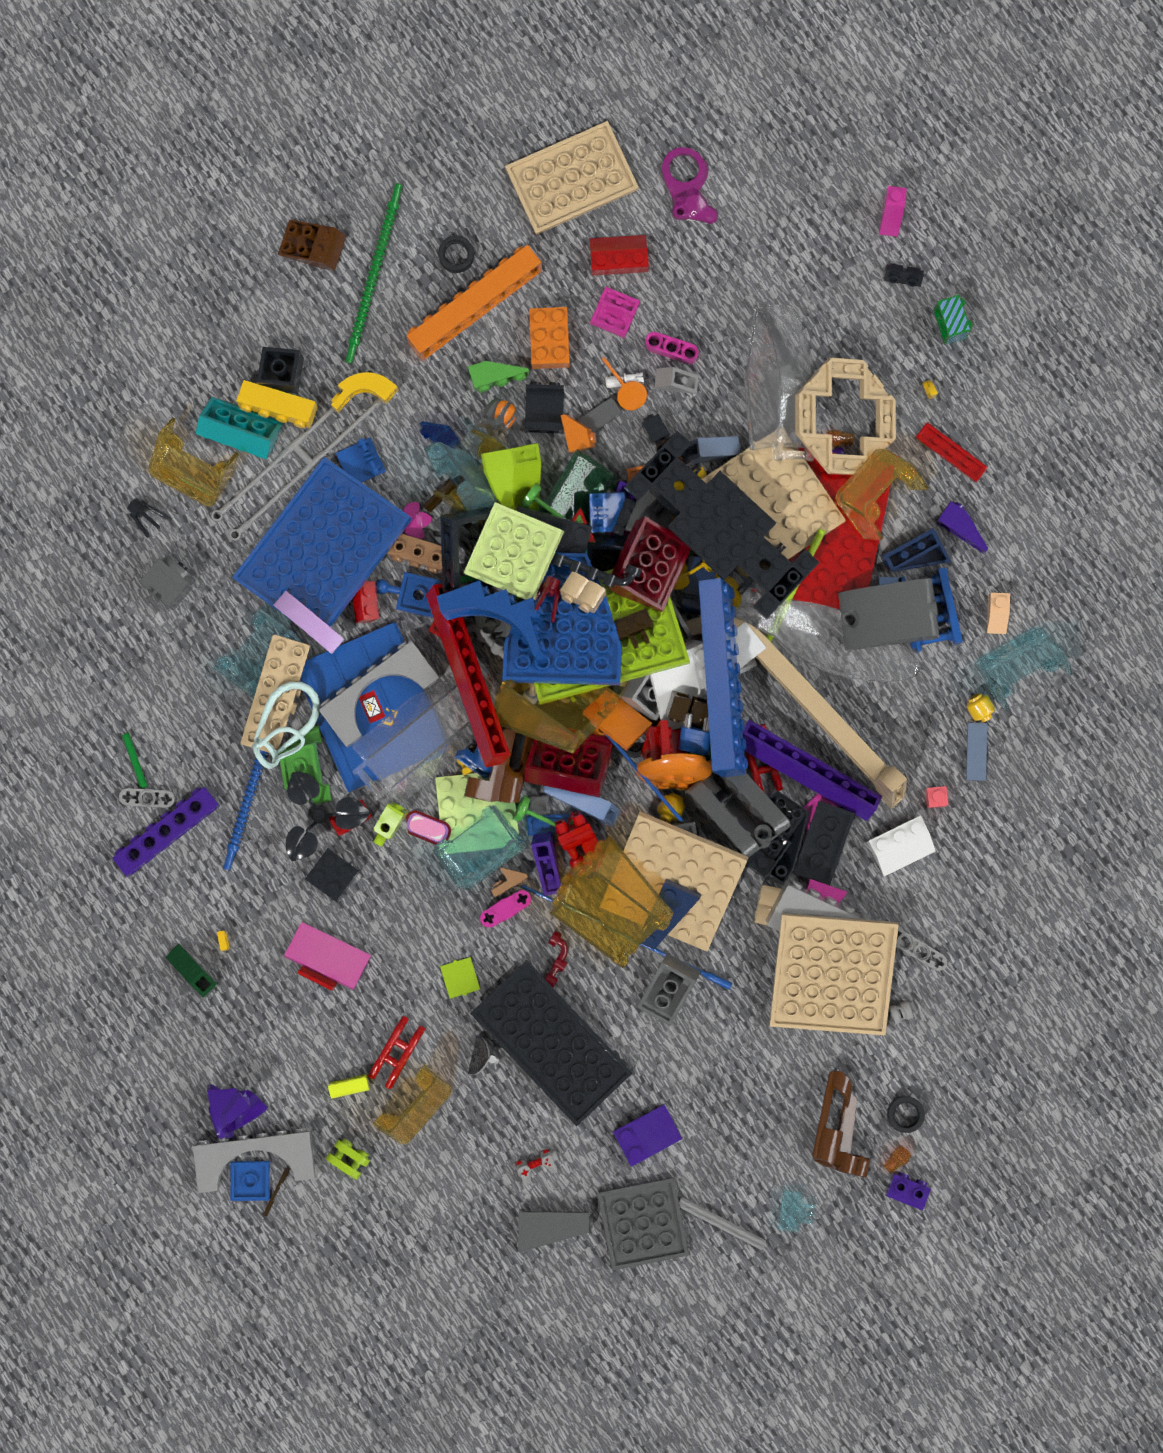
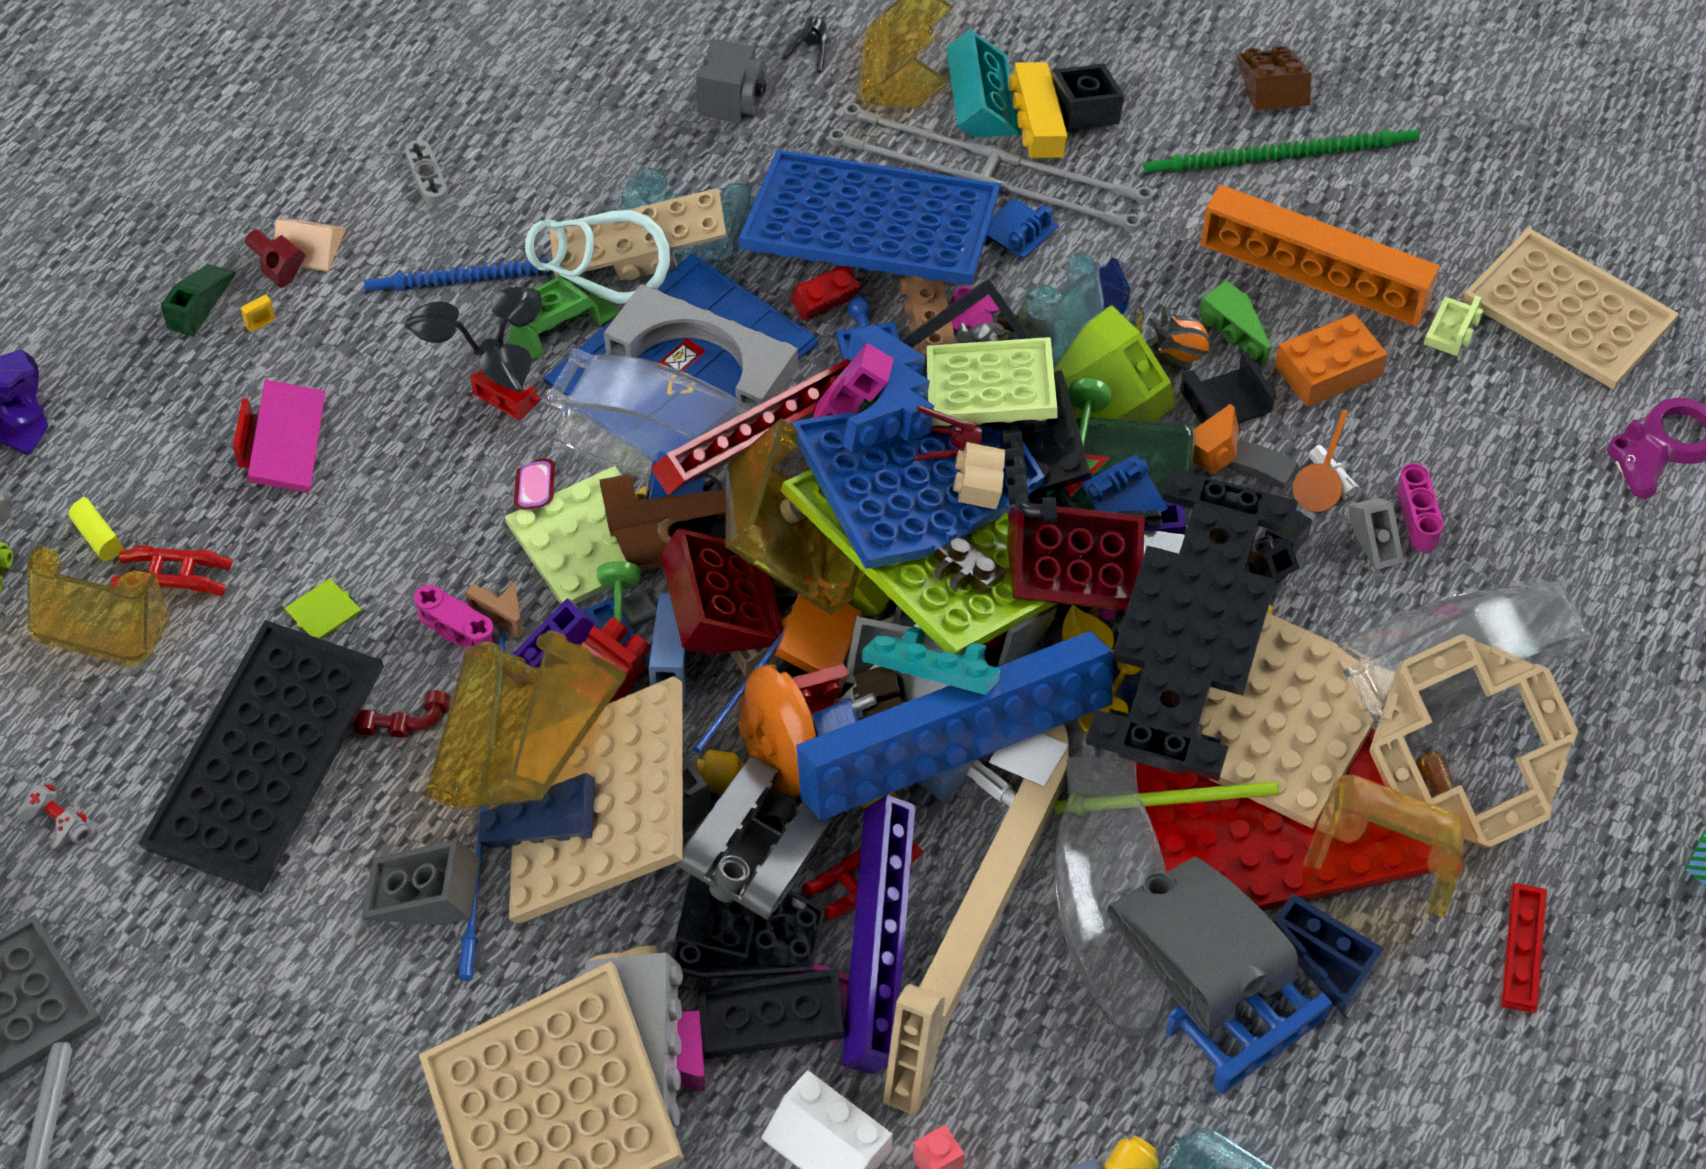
camera: 65 degrees right, 30 degrees down
(134, 760) = (472, 144): green bar -> none
(146, 854) = (388, 202): dark purple brick -> none
(174, 891) = (314, 239): none -> light nougat slope
(185, 914) = (278, 258): none -> dark red piece
(308, 622) = (754, 226): lavender slope -> none
(332, 875) = (409, 397): black brick -> none
(364, 383) = (1119, 177): yellow arch -> none
(393, 816) = (521, 429): lime torso -> none
(456, 240) = (1376, 207): black tyre -> none
(480, 849) = (511, 544): clear light blue windscreen -> none
(481, 1056) = (204, 669): shield -> none
(488, 626) = (859, 381): none -> dark pink arch
(554, 252) = (1453, 325): none -> yellowish green bracket
(615, 312) = (1422, 426): dark pink slope -> none
(619, 255) = (1501, 398): red slope -> none
(647, 1135) = (158, 948): dark purple slope -> none
(677, 686) = (911, 657): none -> teal hinge
(712, 449) = (1305, 604): sand blue slope -> none
(930, 389) = (1599, 872): yellow tile -> none
(959, 523) = (1418, 998): dark purple slope -> none
(998, 613) = (1309, 1123): light nougat slope -> none

